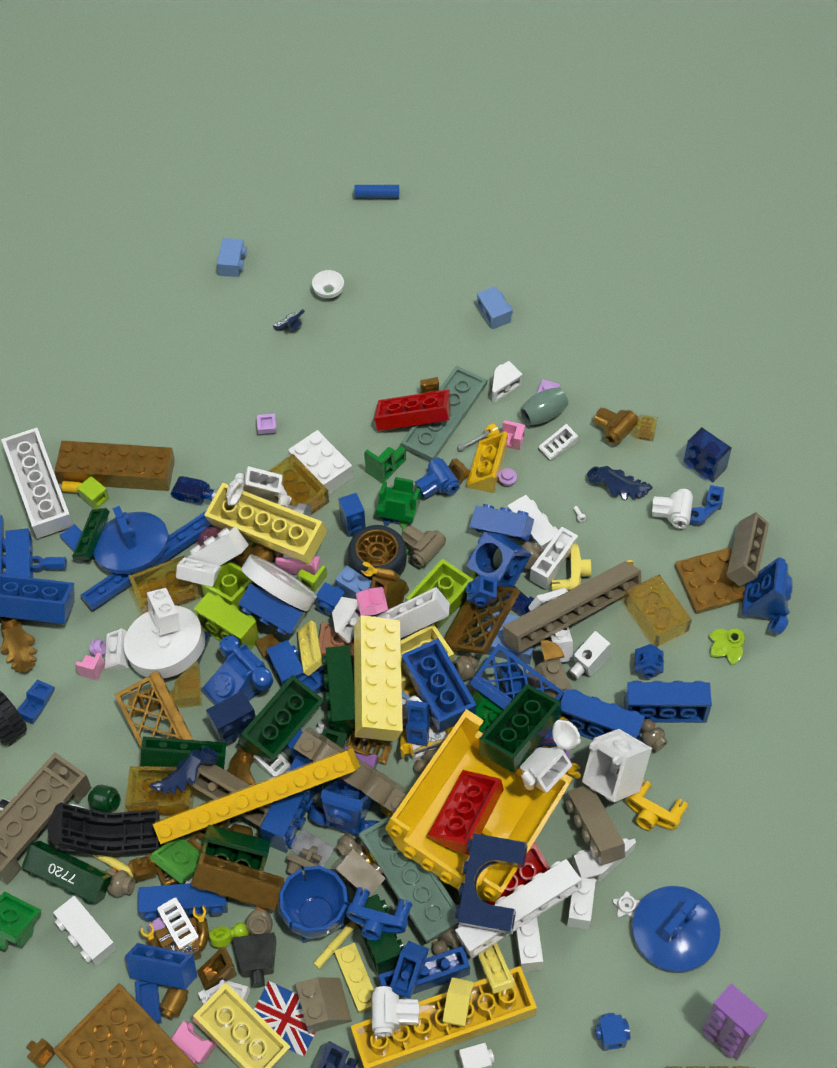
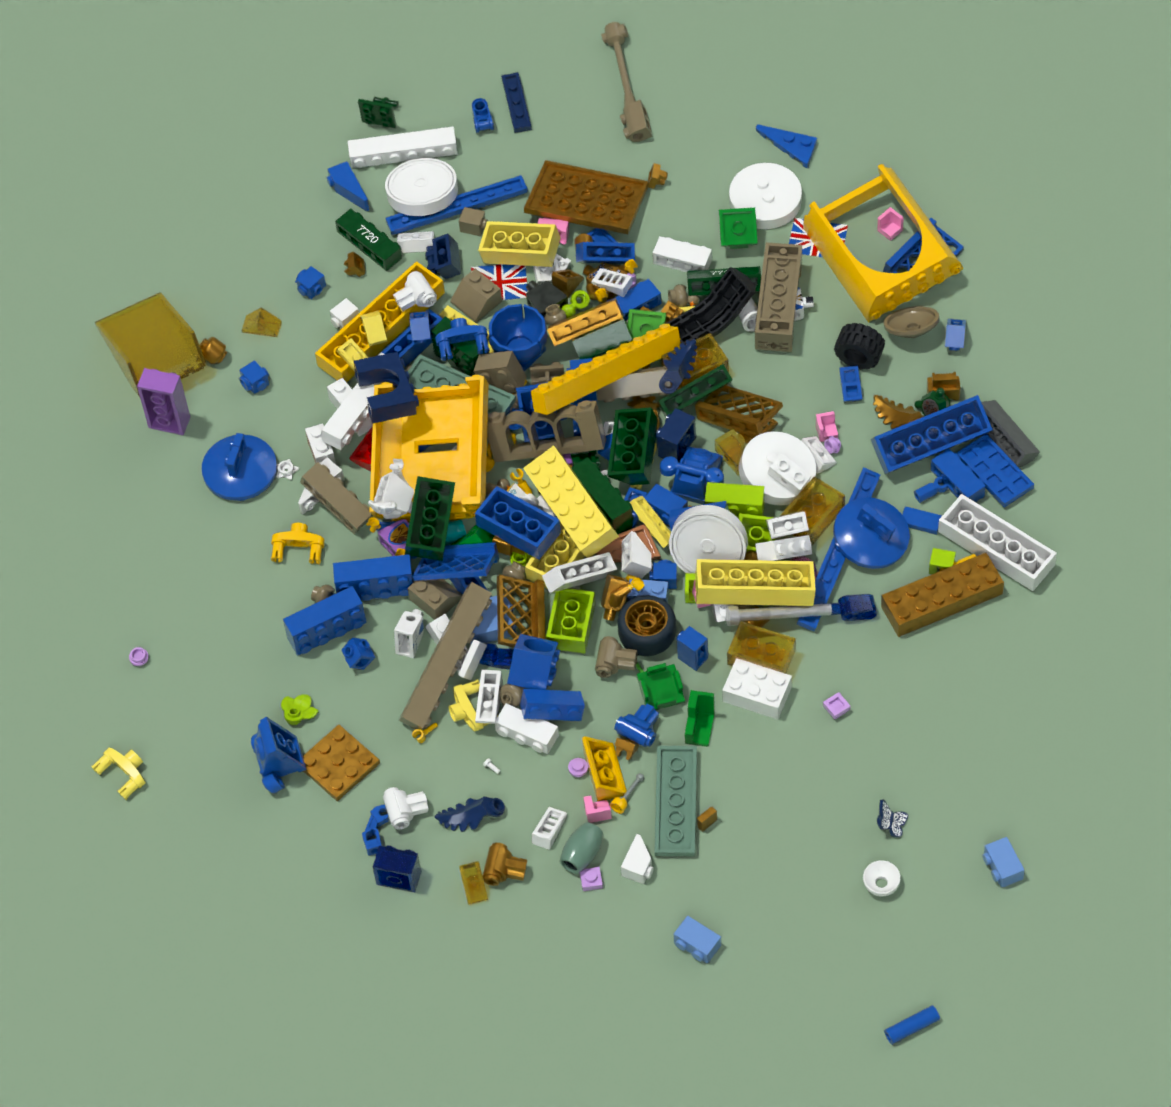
camera: 155 degrees right, 0 degrees up
(91, 534) = (911, 523): dark green tile -> none
(104, 798) = (736, 341): dark green head -> none
(259, 483) = (787, 610): white torso -> none
(371, 601) = (619, 567): bright pink panel -> none
(413, 410) = (705, 781): red slope -> none
(418, 722) = (519, 489): blue slope -> none
(466, 810) = (439, 443): red slope -> none
(481, 590) = (530, 622): blue brick -> none
(551, 650) = (442, 605): pearl gold tile -> none
(614, 752) = (338, 534): white container -> none
(657, 610) = (372, 702): clear yellow brick -> none
(747, 549) = (315, 788): dark tan brick -> none

